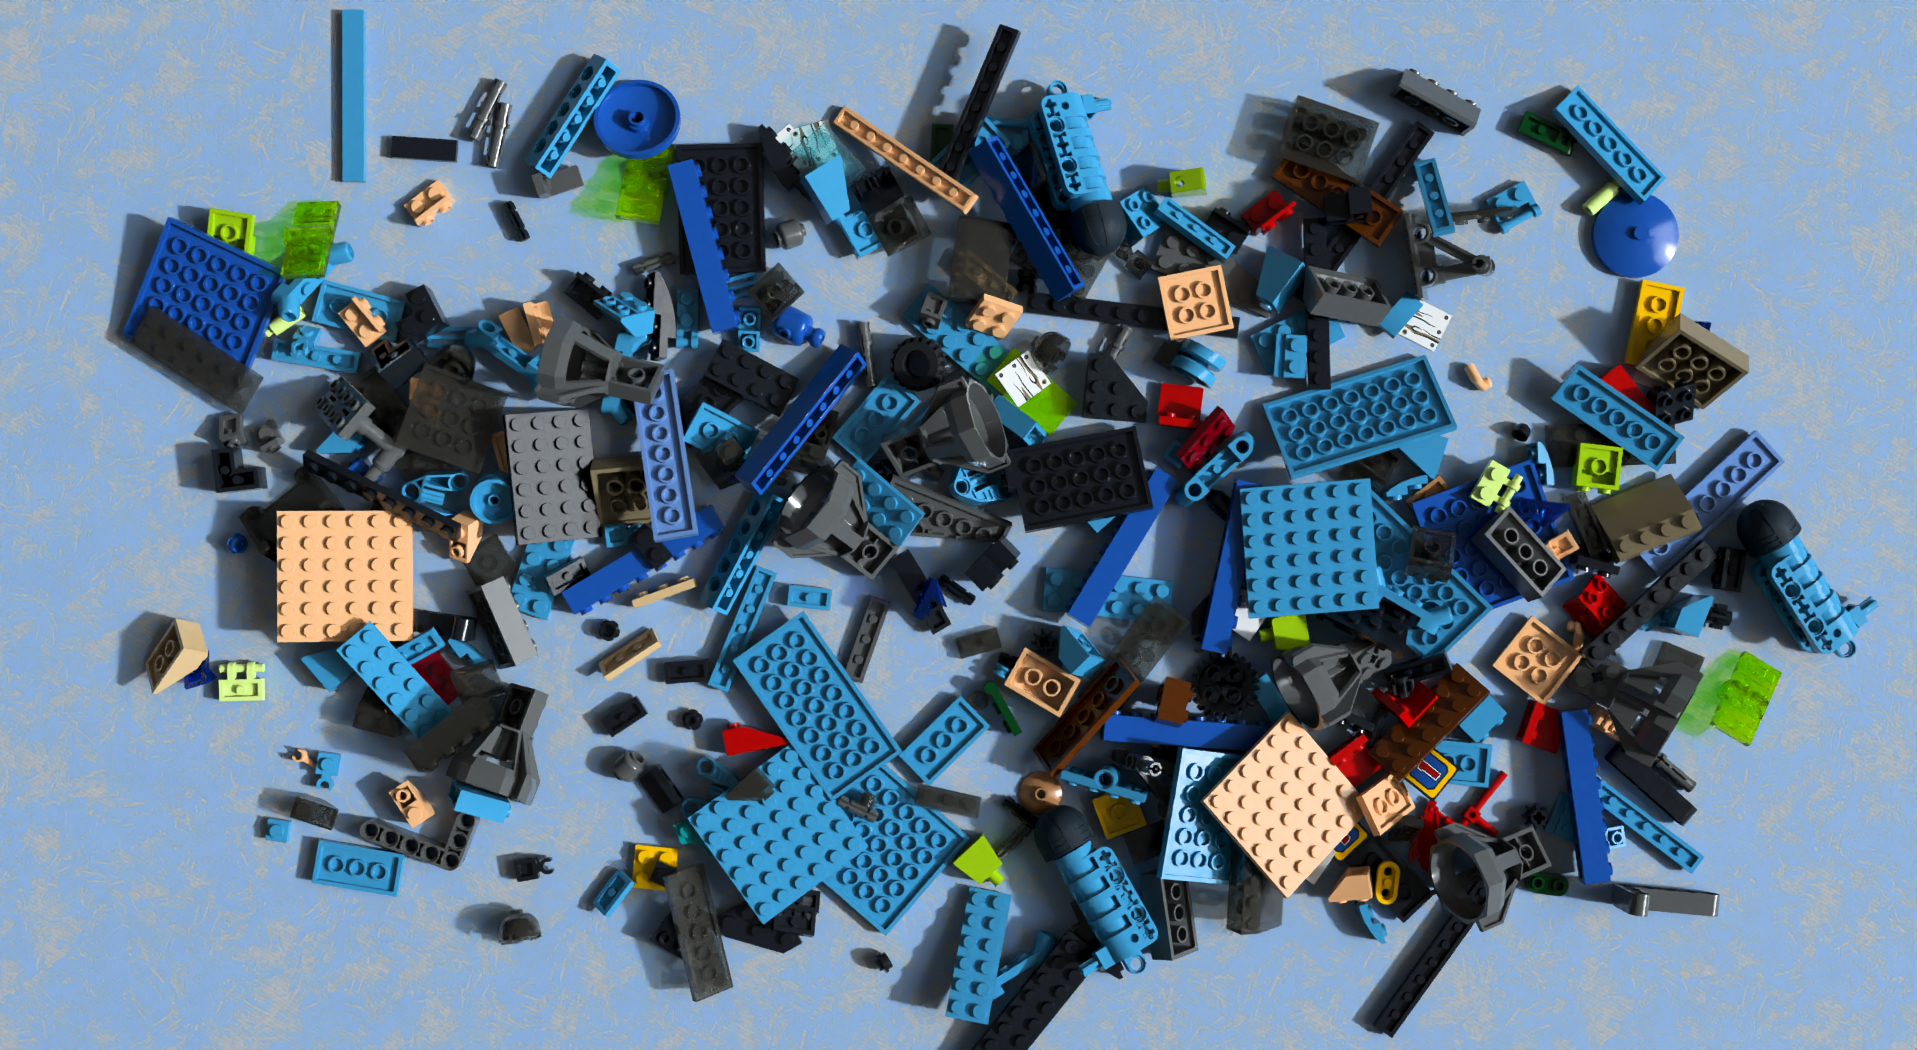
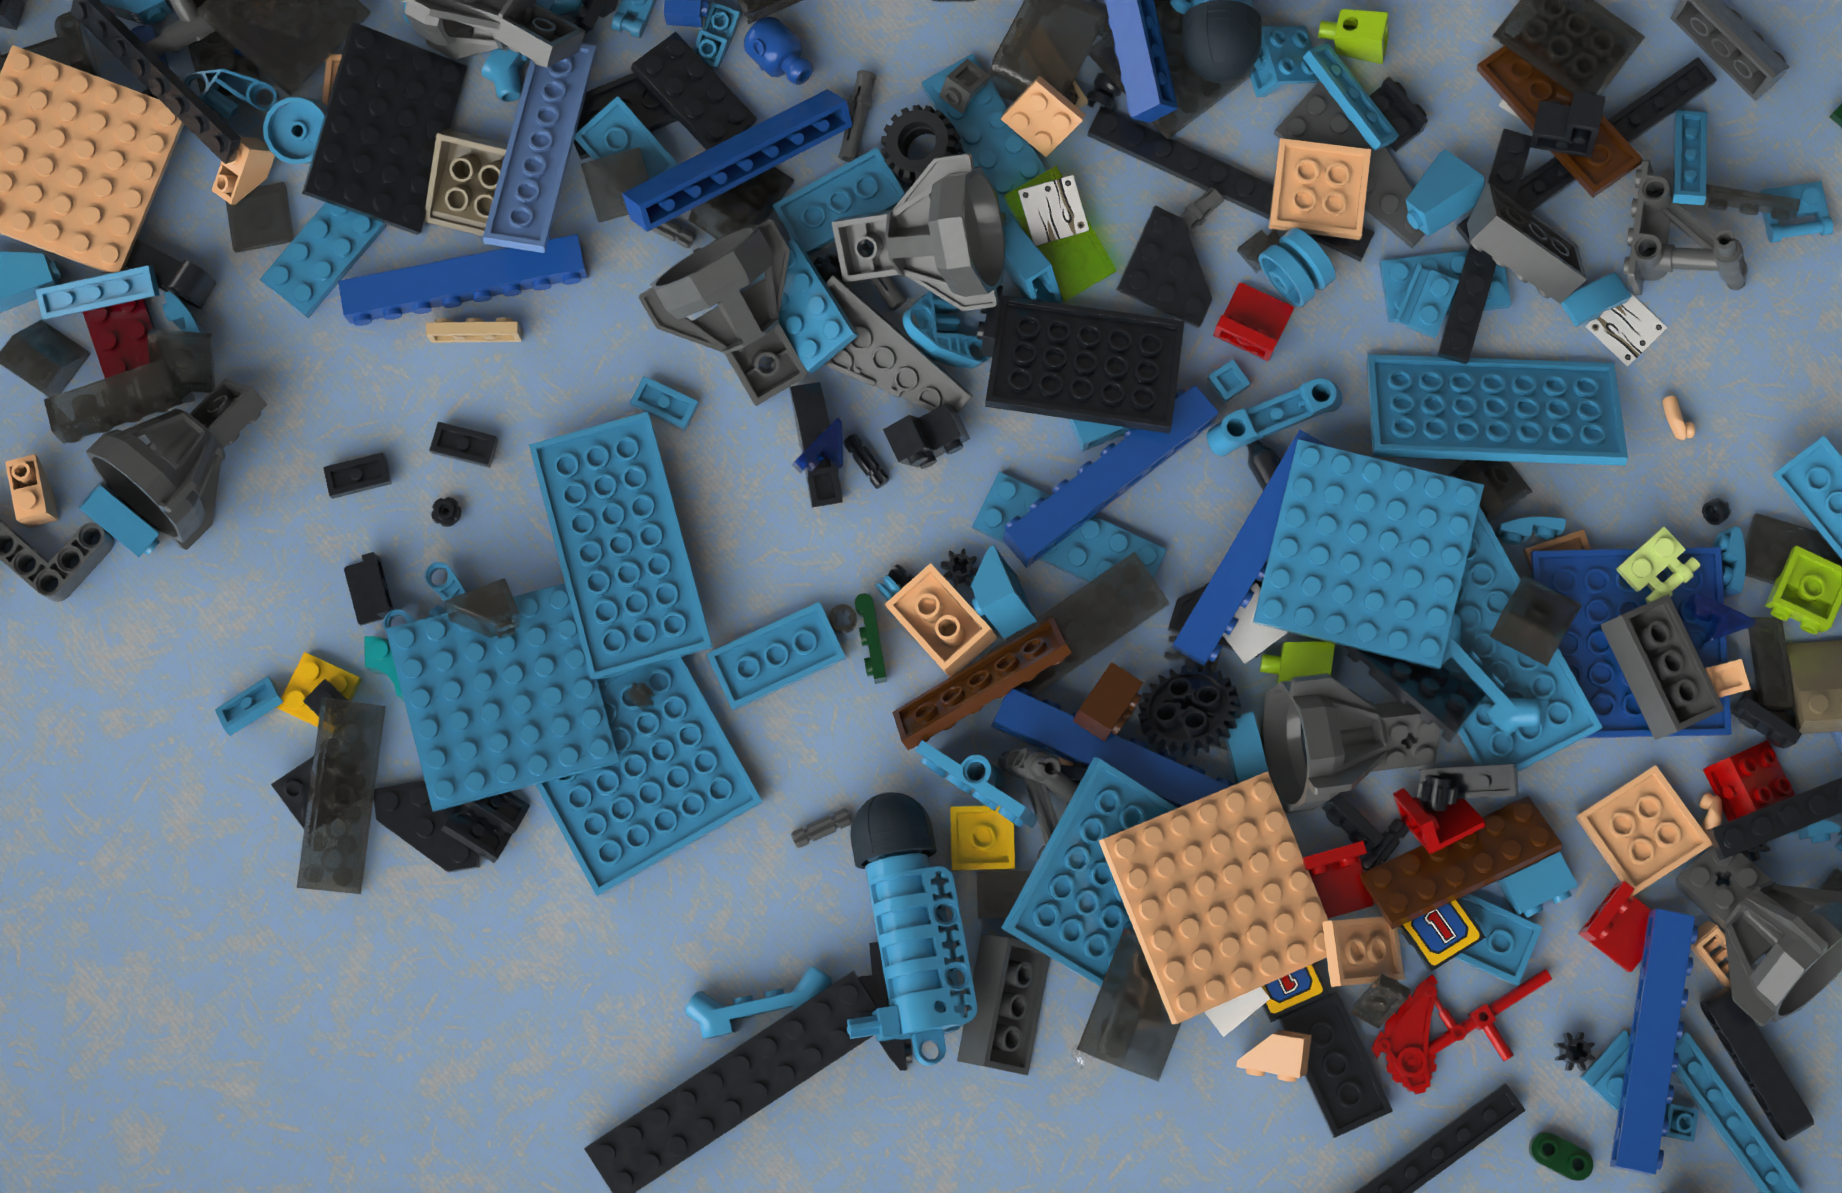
camera: 30 degrees right, 10 degrees down
(394, 679) = (69, 306): dark azure plate -> none
(502, 623) = (245, 294): slope -> none
(518, 928) = (101, 706): clear smoke cylinder -> none
(529, 868) = (152, 633): black plate -> none
(566, 575) = (352, 263): black plate -> none
(609, 636) = (382, 349): black plate -> none
(617, 533) = (443, 236): dark azure plate -> none
(628, 766) = (336, 542): dark grey head -> none
(629, 654) = (396, 396): tan plate -> none
(655, 553) = (478, 260): black plate -> none
(741, 552) = (595, 310): dark azure brick -> none
(742, 628) = (560, 411): dark azure plate -> none
(747, 738) = (503, 558): red slope -> none
(857, 808) = (623, 704): dark grey axle -> none
(866, 638) = (721, 484): dark grey tile -> none
(883, 962) = (579, 932): black plate -> none
(947, 801) = (750, 739): clear smoke plate -> none
(978, 642) = (870, 542): clear smoke plate -> none
(978, 955) = (714, 967): dark azure plate -> none
(980, 861) = (765, 838): lime torso -> none
(1019, 811) = (843, 789): black axle -> none
(1040, 781) = (879, 758): medium nougat dish -> none
(1048, 350) = (1103, 188): clear smoke cylinder -> none
(1136, 262) = (1259, 115): clear smoke plate -> none
(1205, 440) = (1274, 370): dark red plate -> none
(1268, 210) = (1457, 111): red bracket -> none
(1373, 925) = (1290, 1131): dark azure slope -> none
(1388, 881) = (1329, 1067): yellow plate -> none
(1425, 455) = (1568, 489): dark azure slope -> none
(1499, 864) = (1496, 1098): dark grey plate -> none
(1674, 772) = (1793, 1056): dark grey pin -> none

